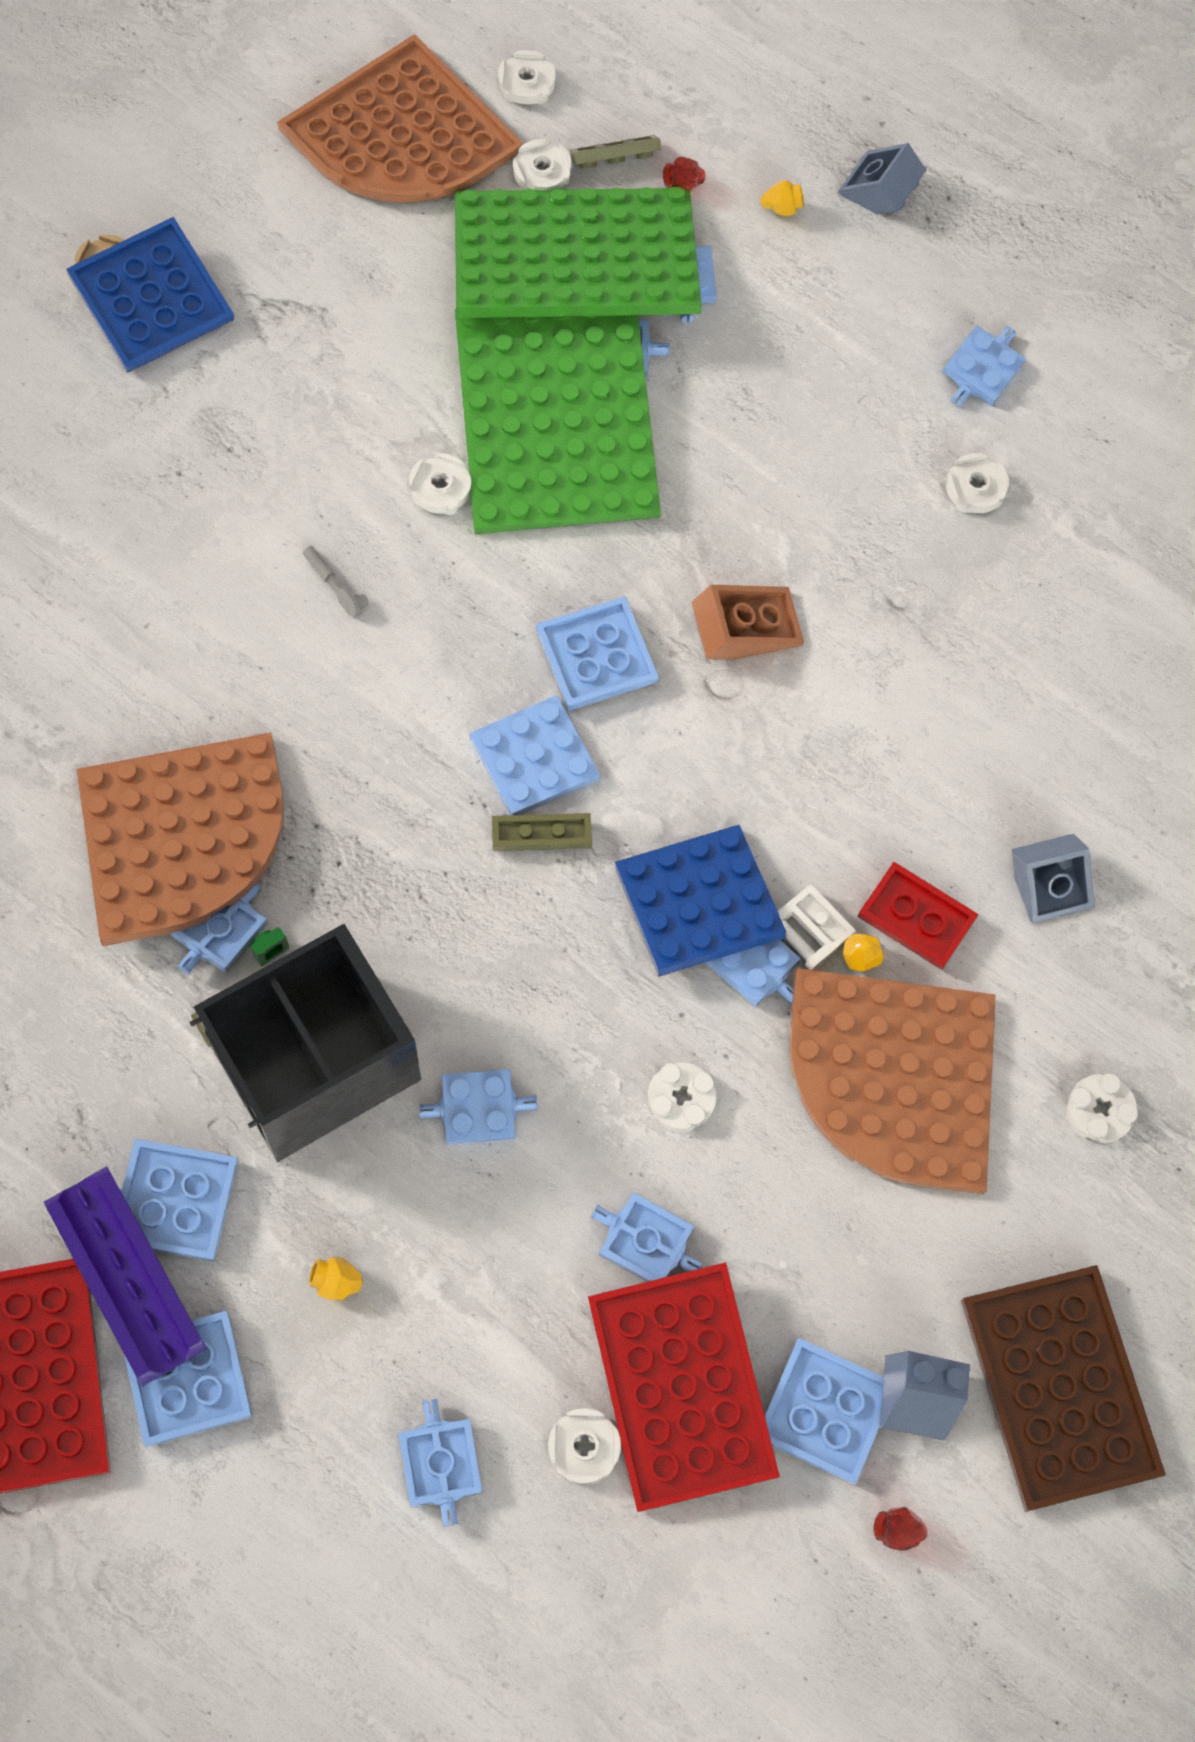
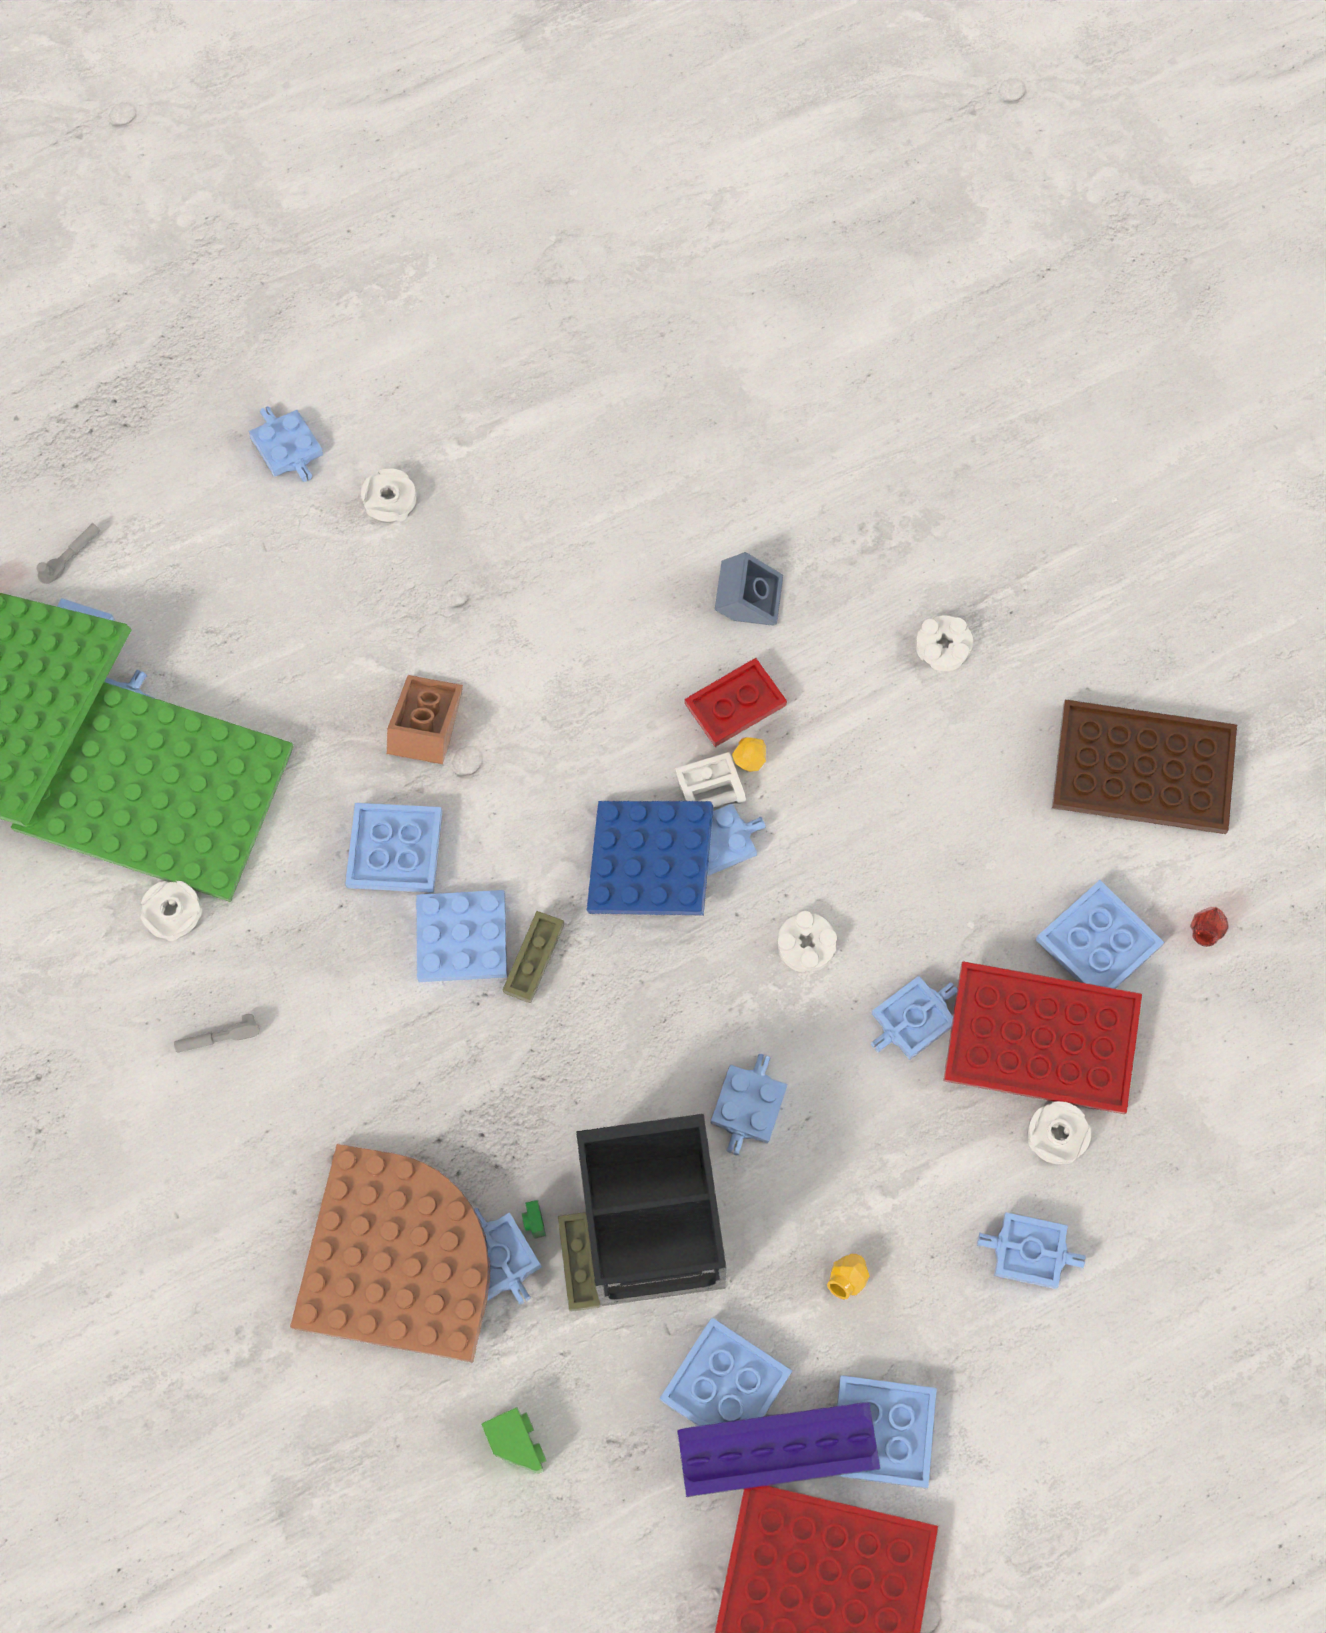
camera: 60 degrees left, 0 degrees up
(41, 1017) = (511, 1440): none -> bright green slope
(742, 227) = (53, 568): none -> light grey piece
(783, 198) = (48, 522): yellow rock -> none
(884, 179) = (73, 439): sand blue slope -> none
(897, 1075) = (856, 775): nougat plate -> none
(923, 1394) = (1116, 863): sand blue slope -> none

